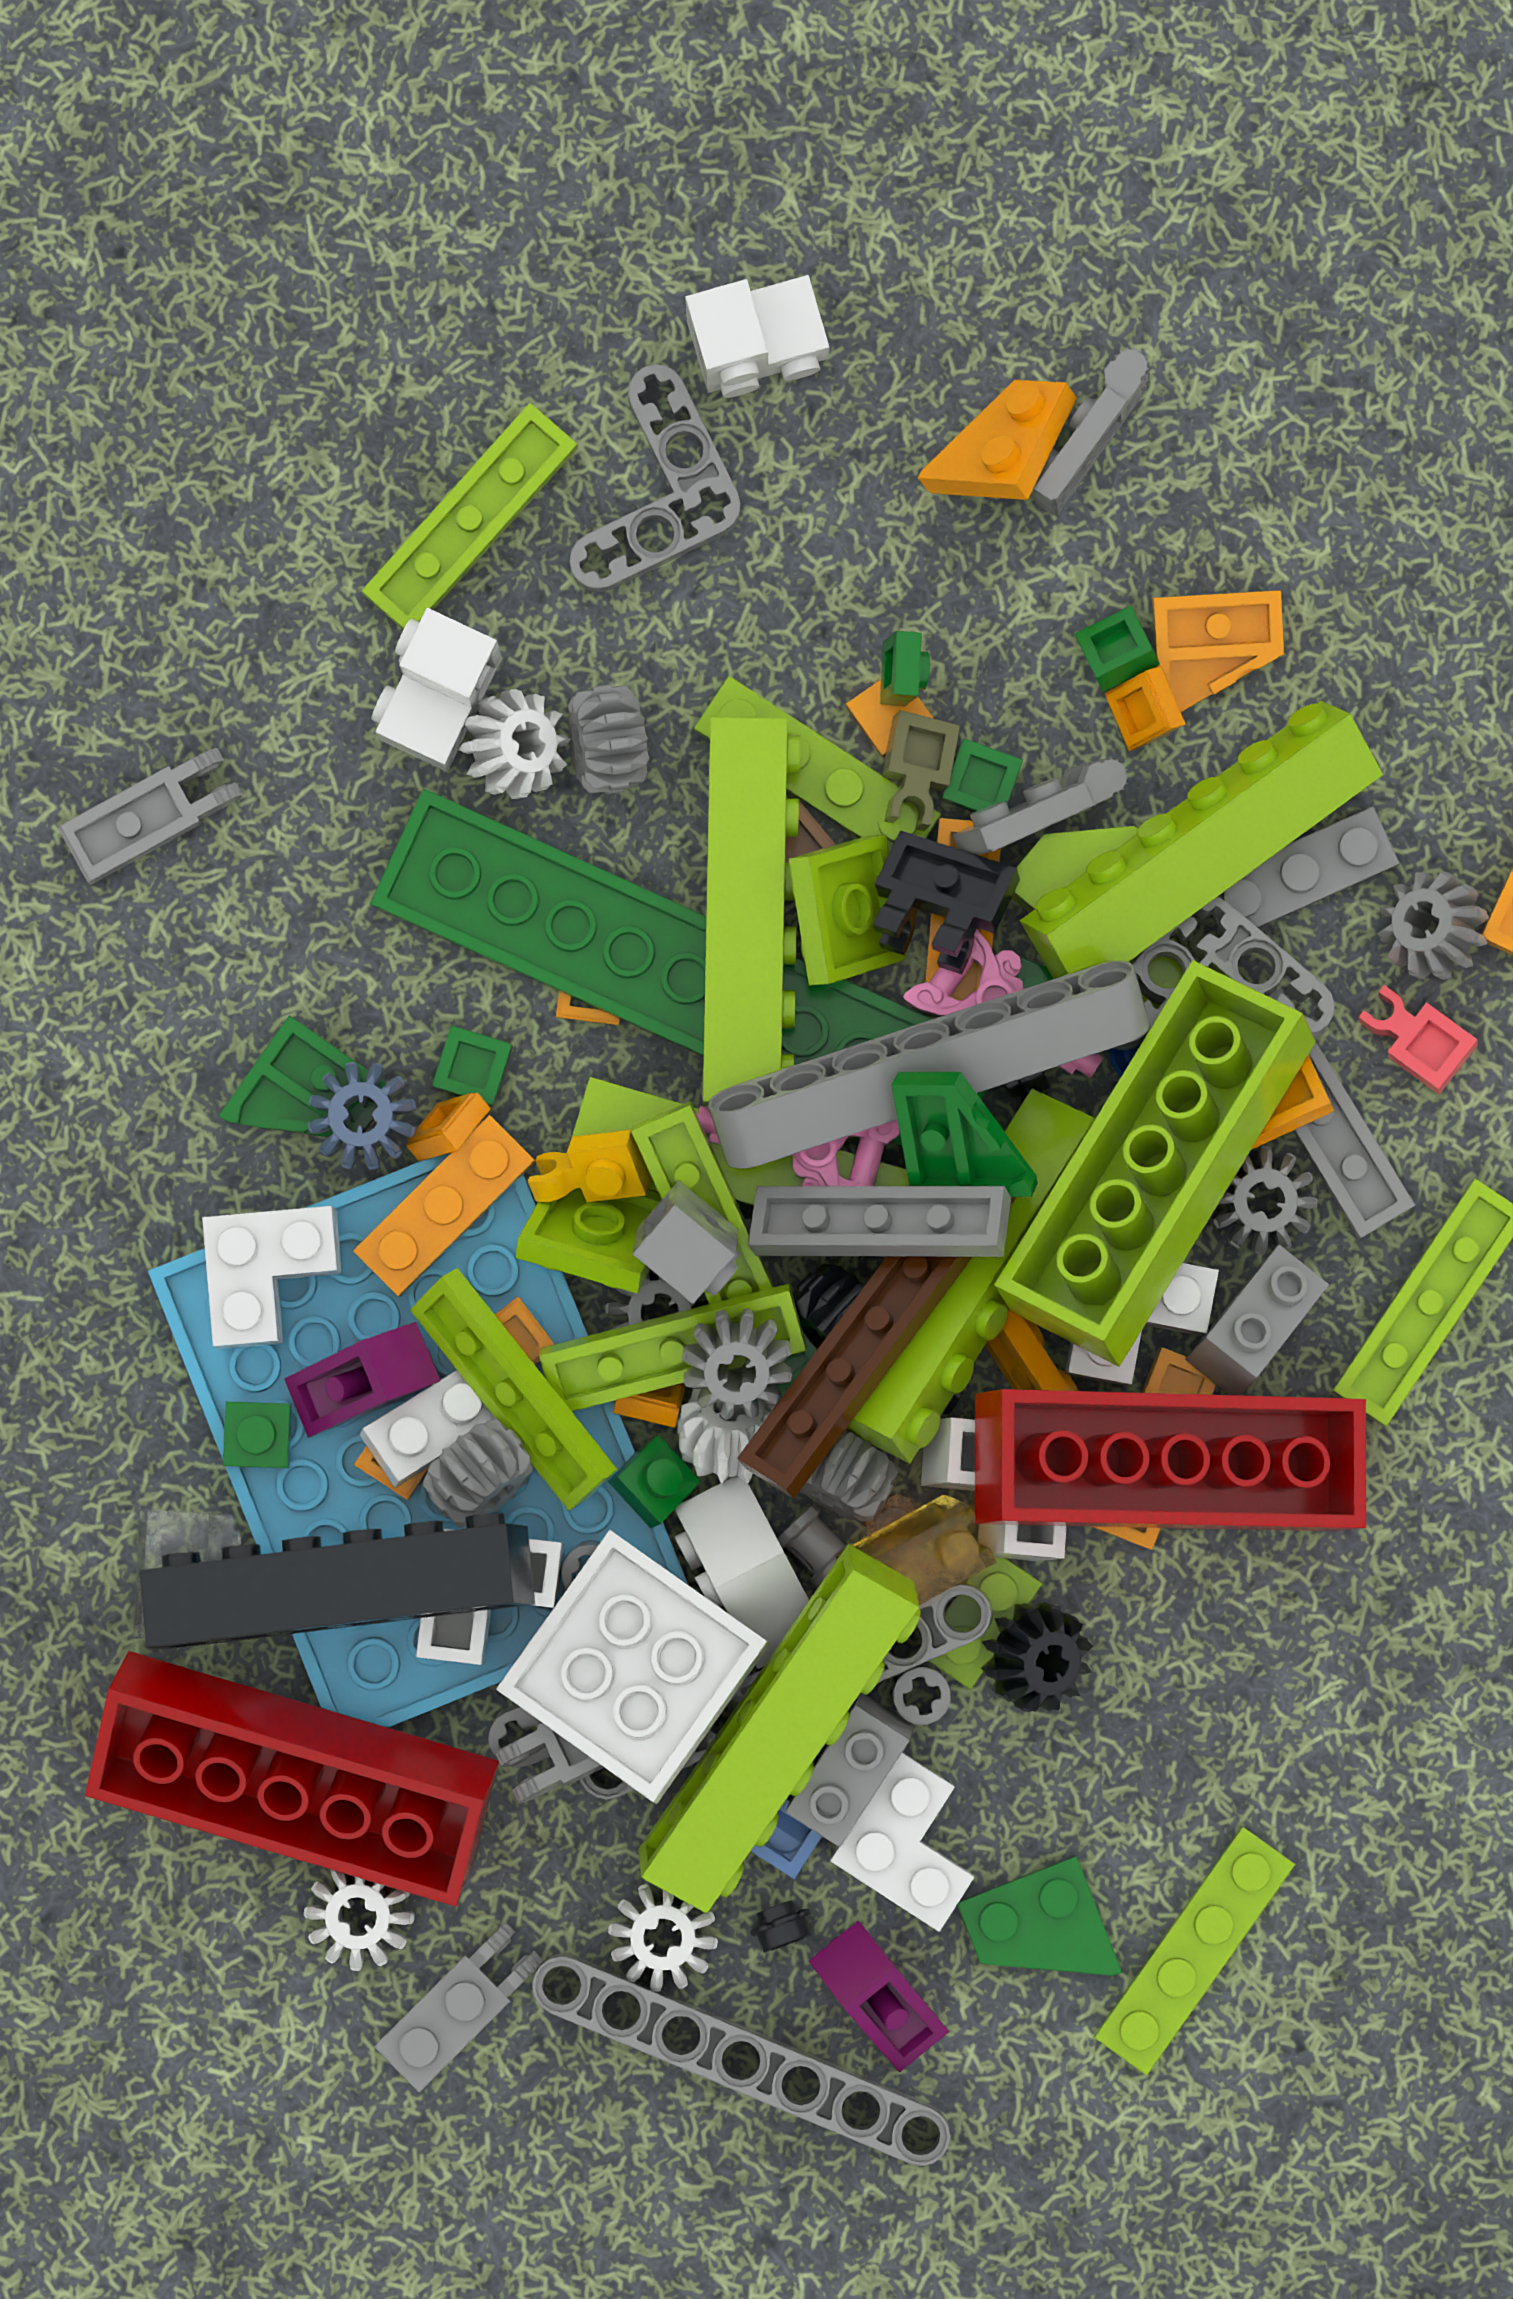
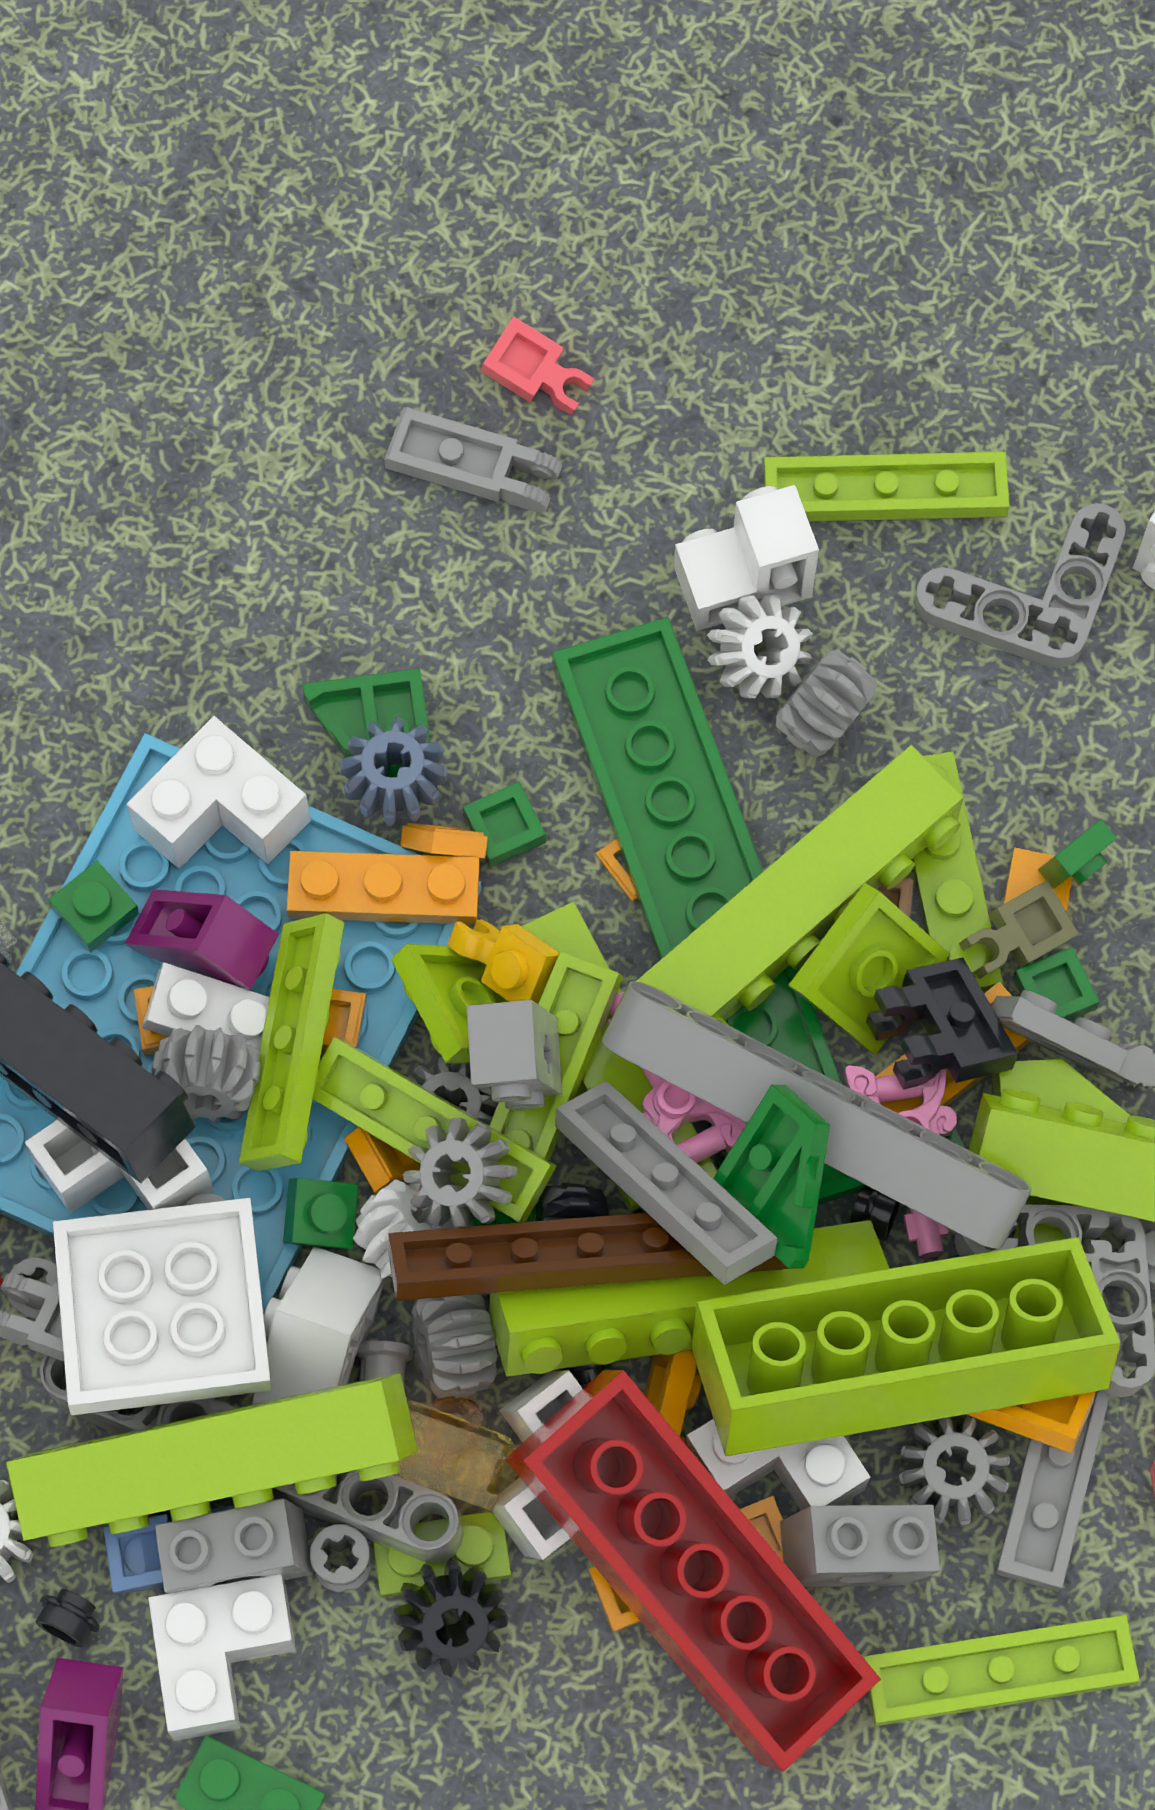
camera: 45 degrees right, 15 degrees down
(108, 697) = (527, 362): none -> coral plate

